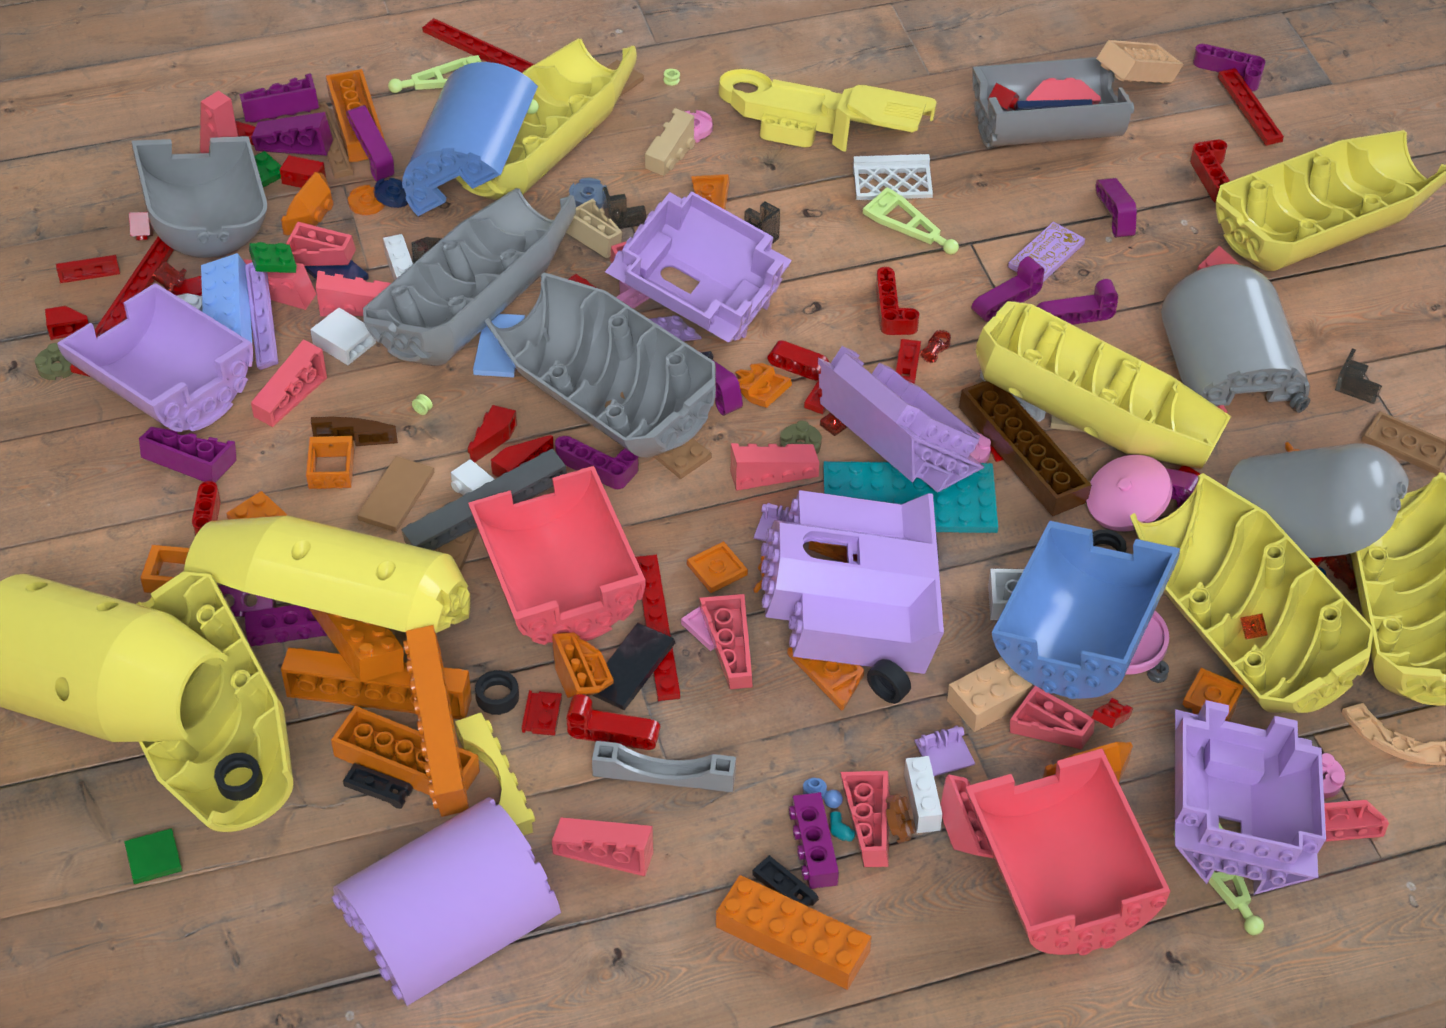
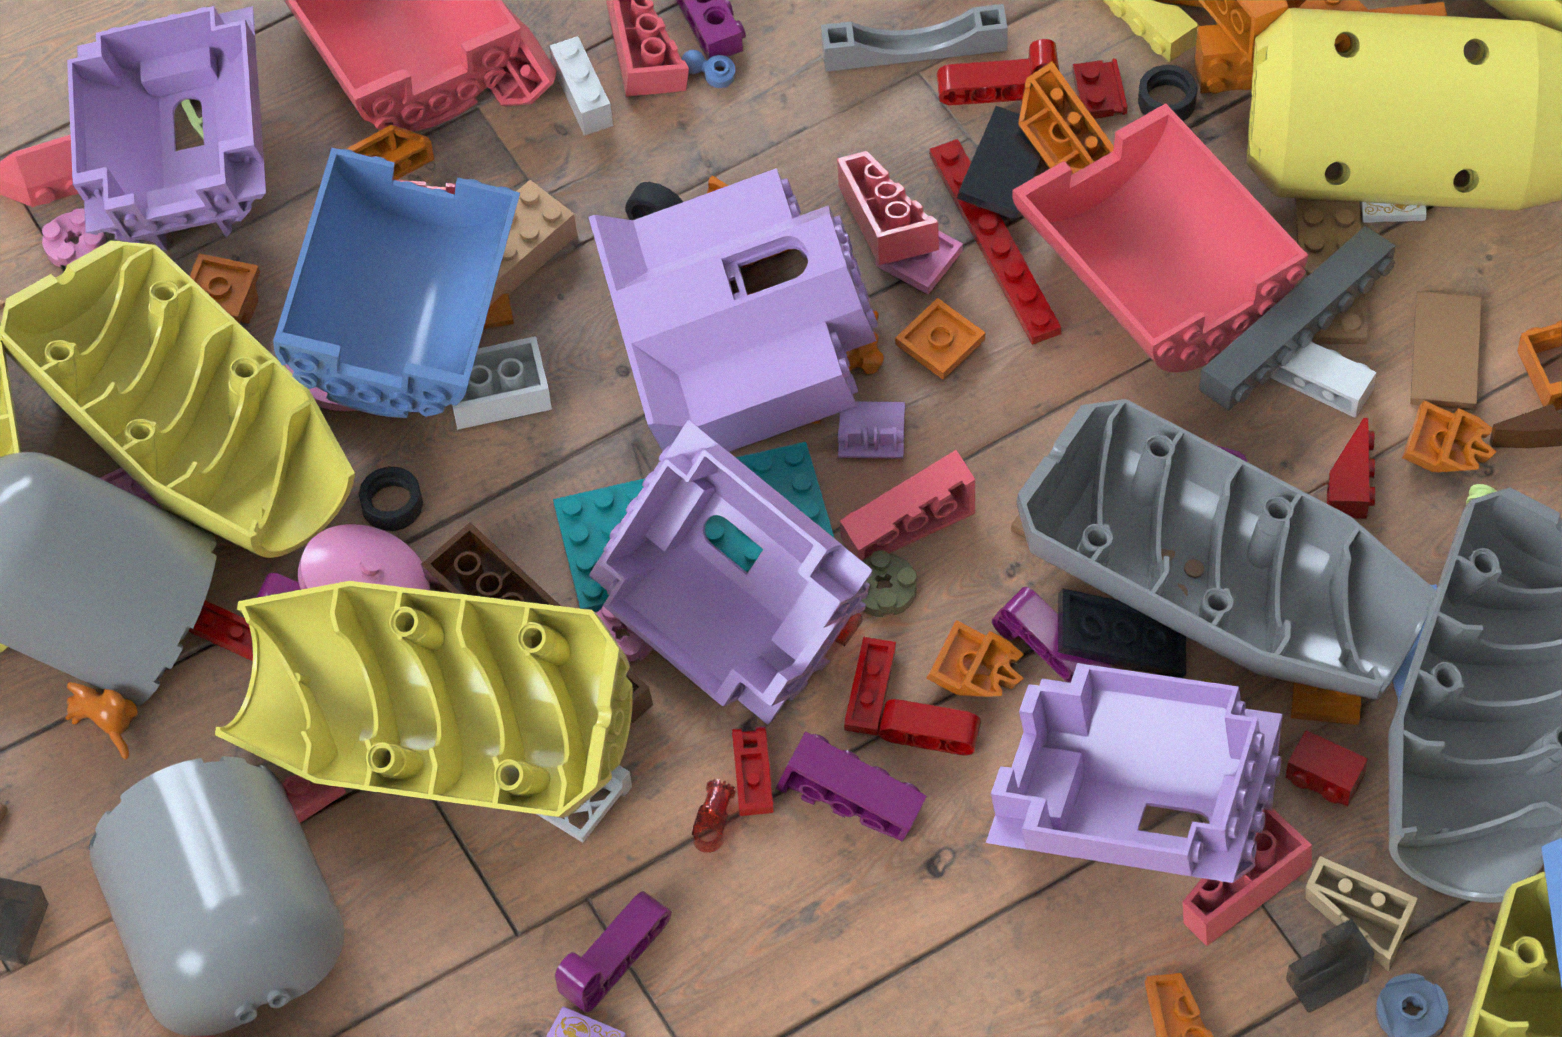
camera: 170 degrees right, 10 degrees up
(425, 438) = (1447, 440): none -> orange plate
(515, 455) = (1294, 435): red slope -> none
(767, 220) = (1078, 996): clear smoke panel -> none
(839, 829) = (680, 33): teal arm -> none
(865, 337) = (851, 787): none -> magenta wedge
(891, 317) = (810, 887): red beam -> none
(899, 818) = (602, 36): dark orange plate -> none
(945, 750) = (566, 157): lavender hinge -> none
(1085, 308) = (490, 948): magenta beam -> none
(1253, 626) = (165, 387): clear red plate -> none

